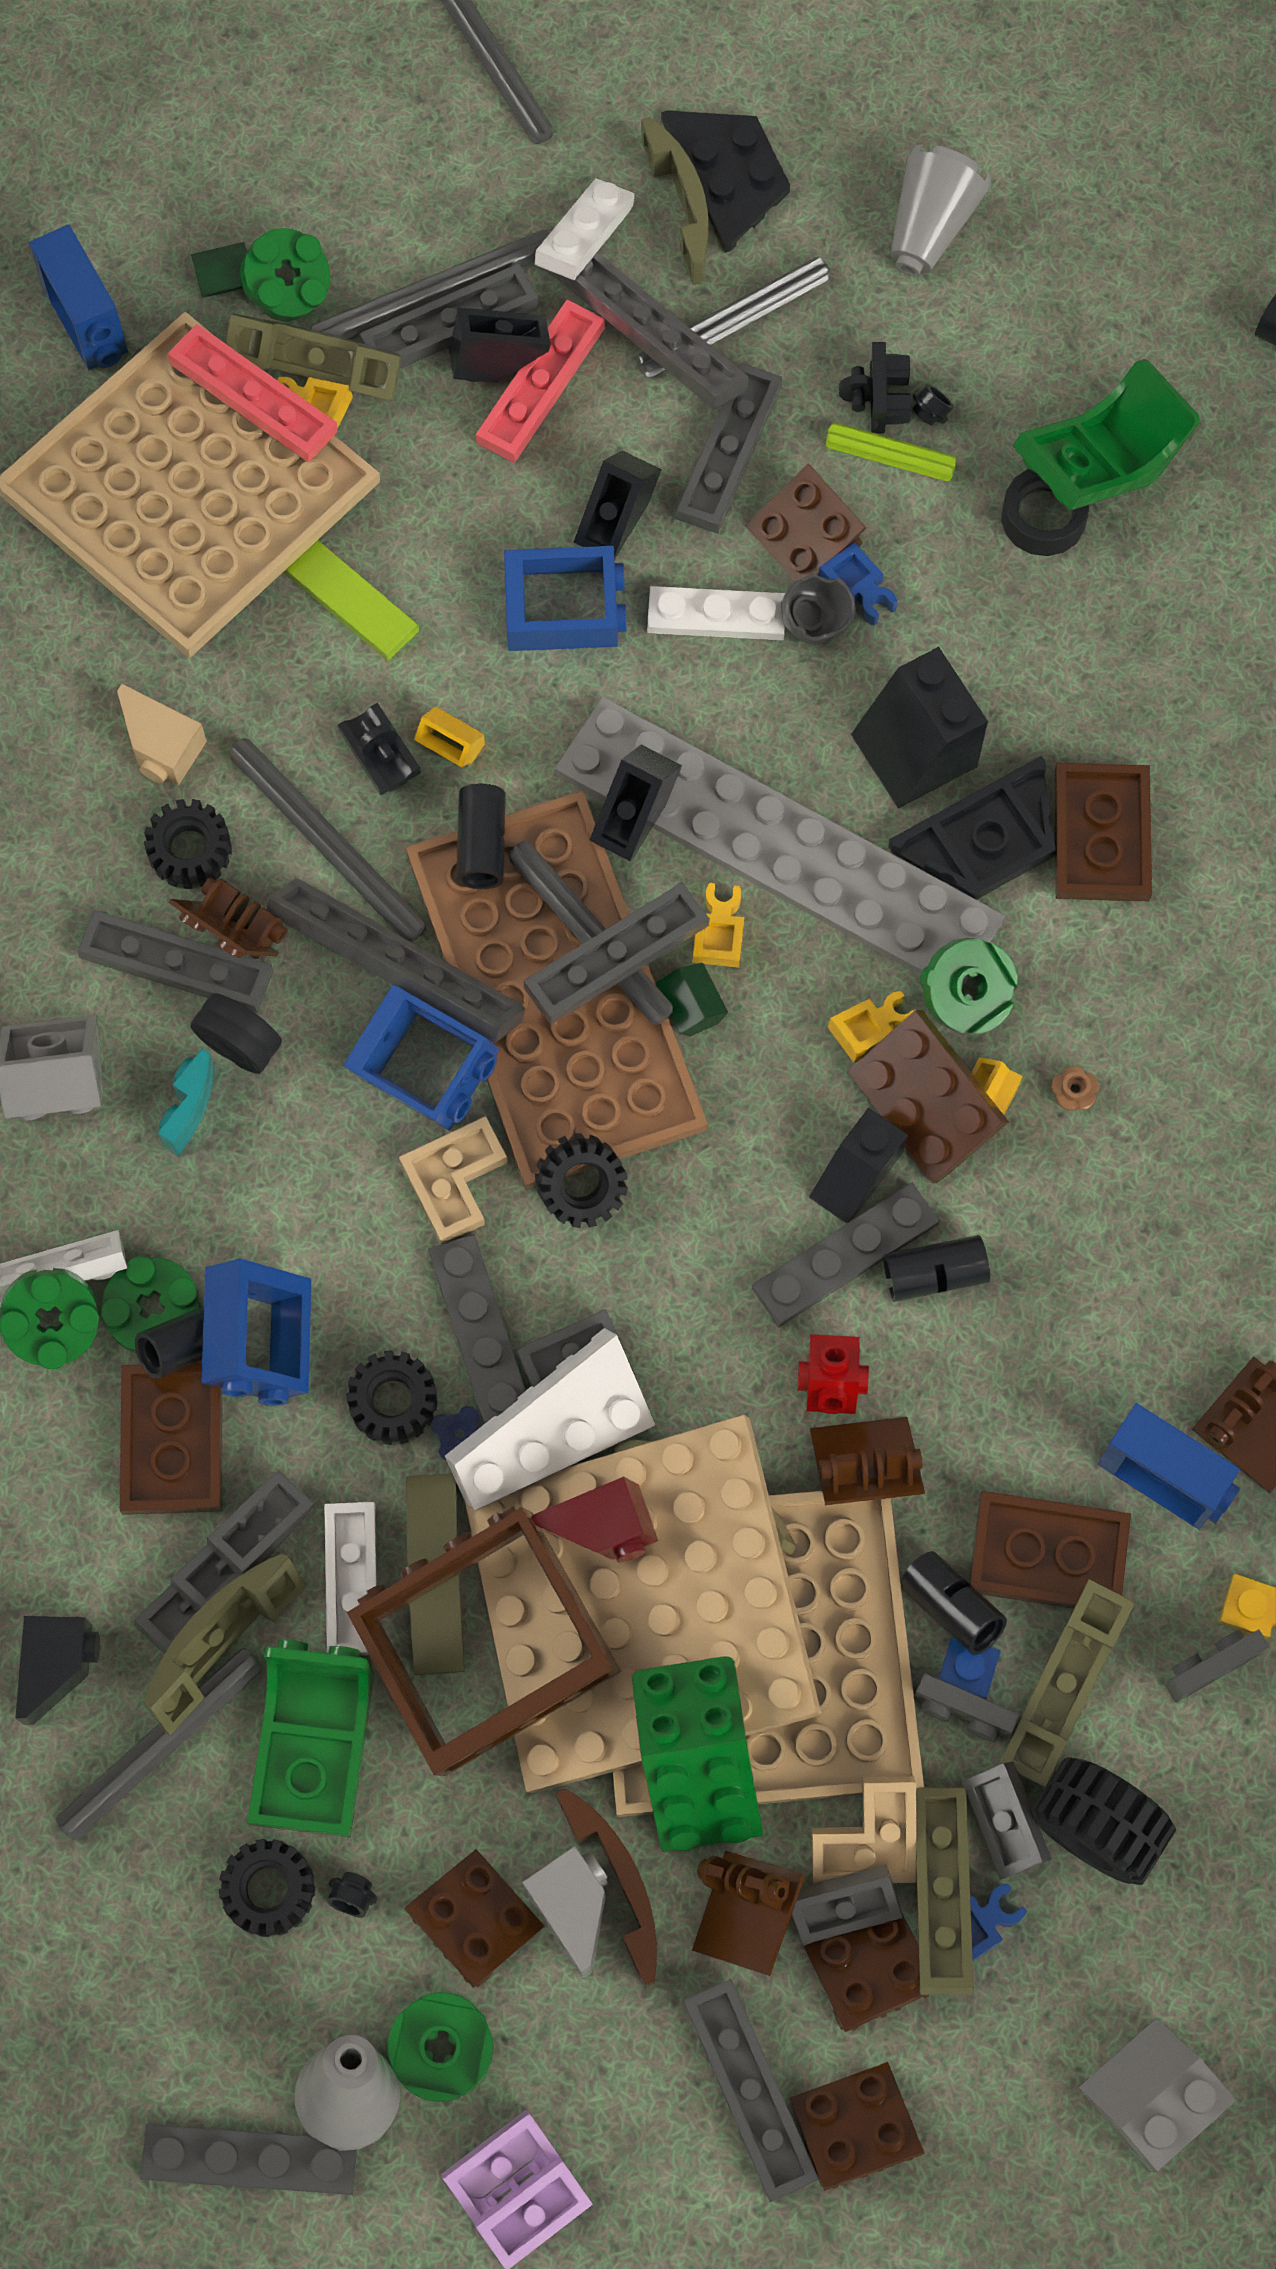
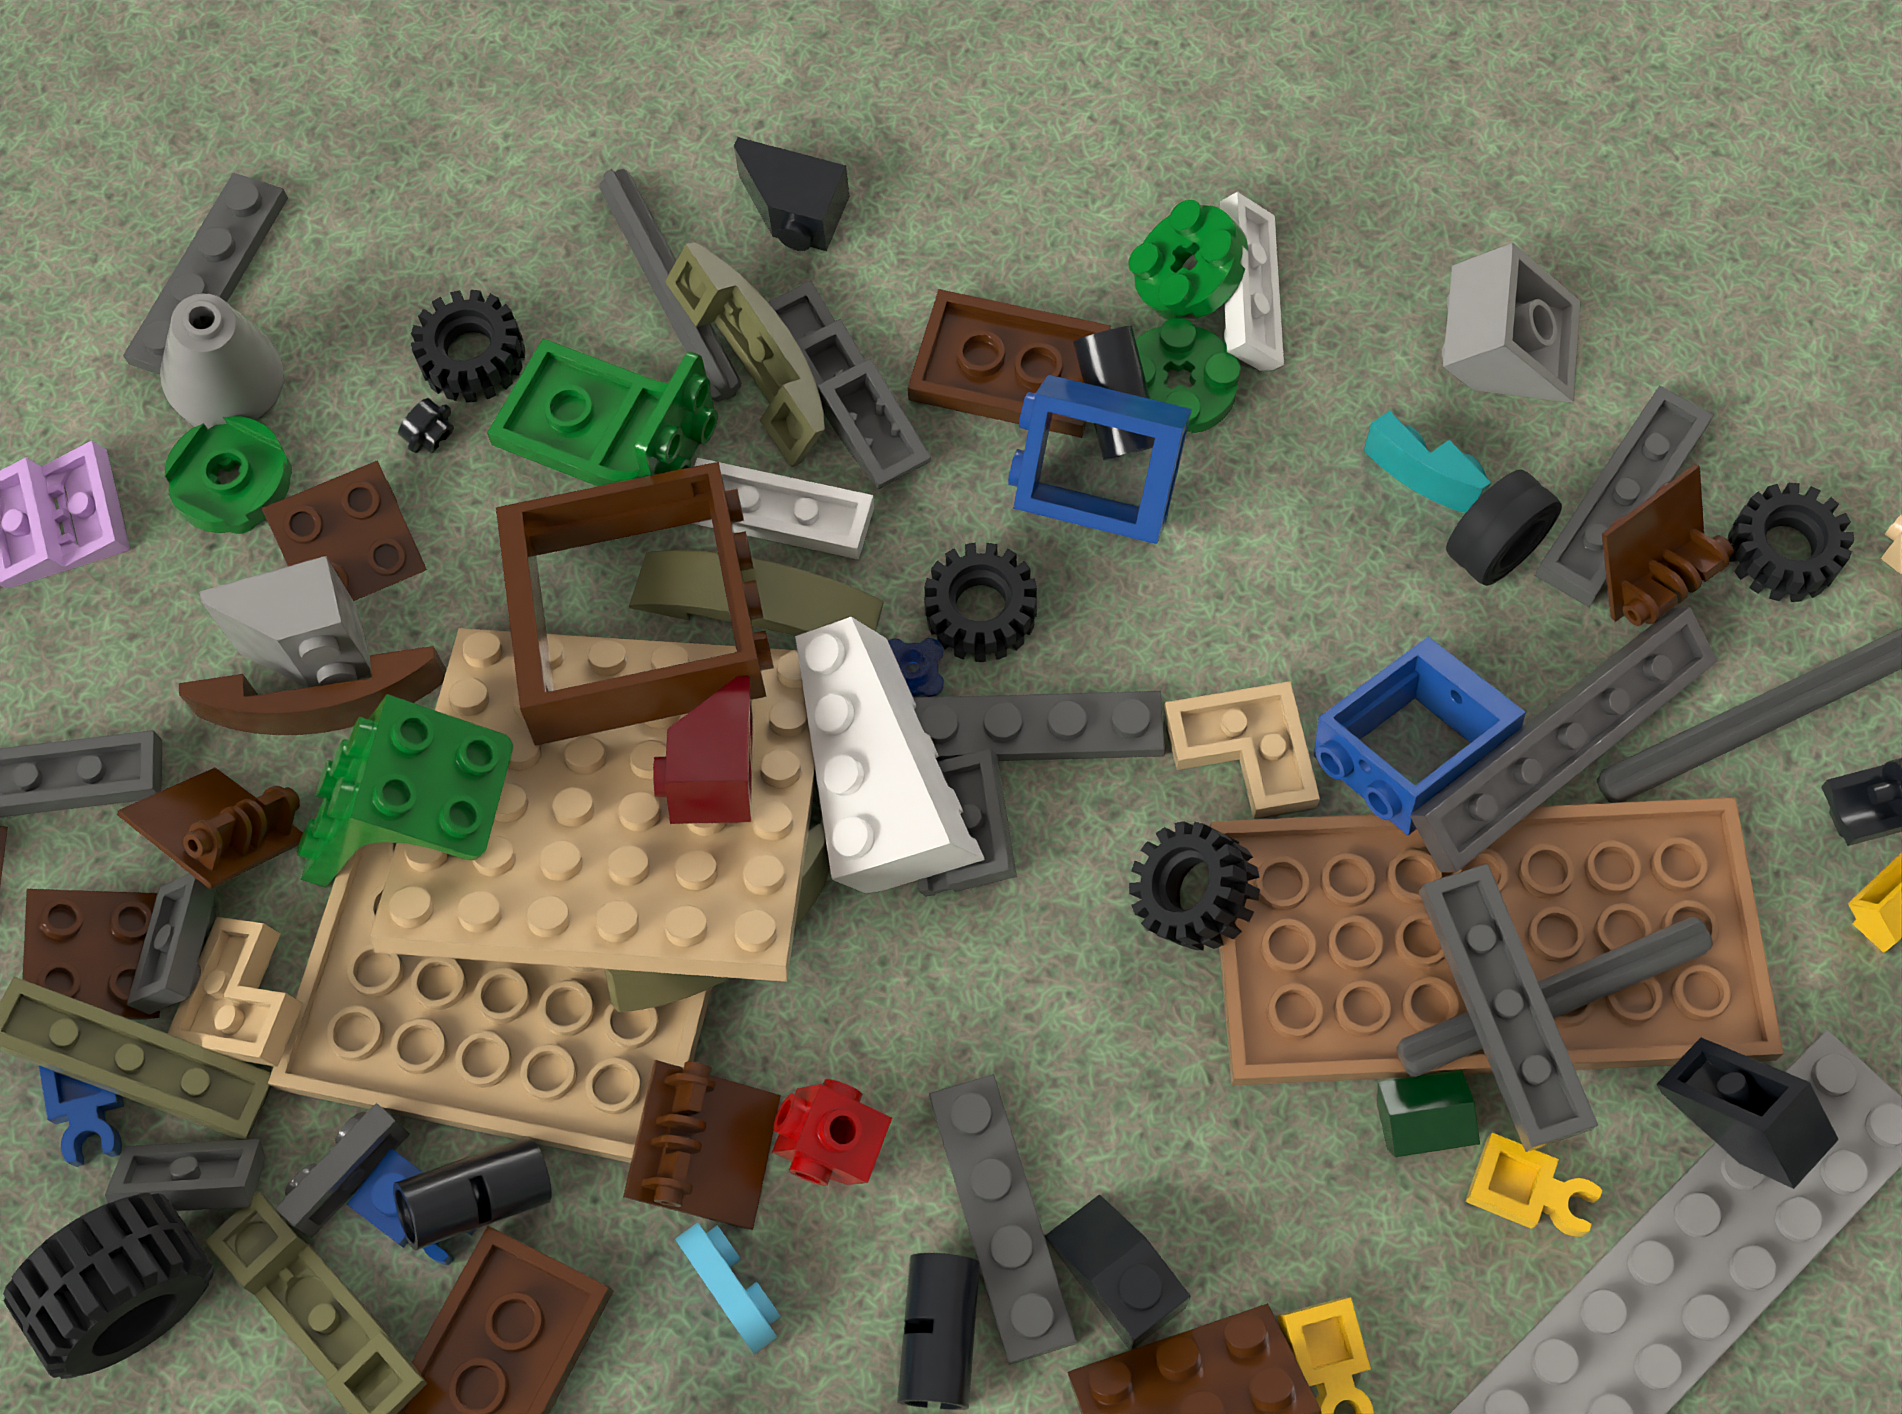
camera: 110 degrees right, 5 degrees down
(481, 836) = (1740, 885): black pin -> none
(964, 1396) = (747, 1309): none -> medium azure plate

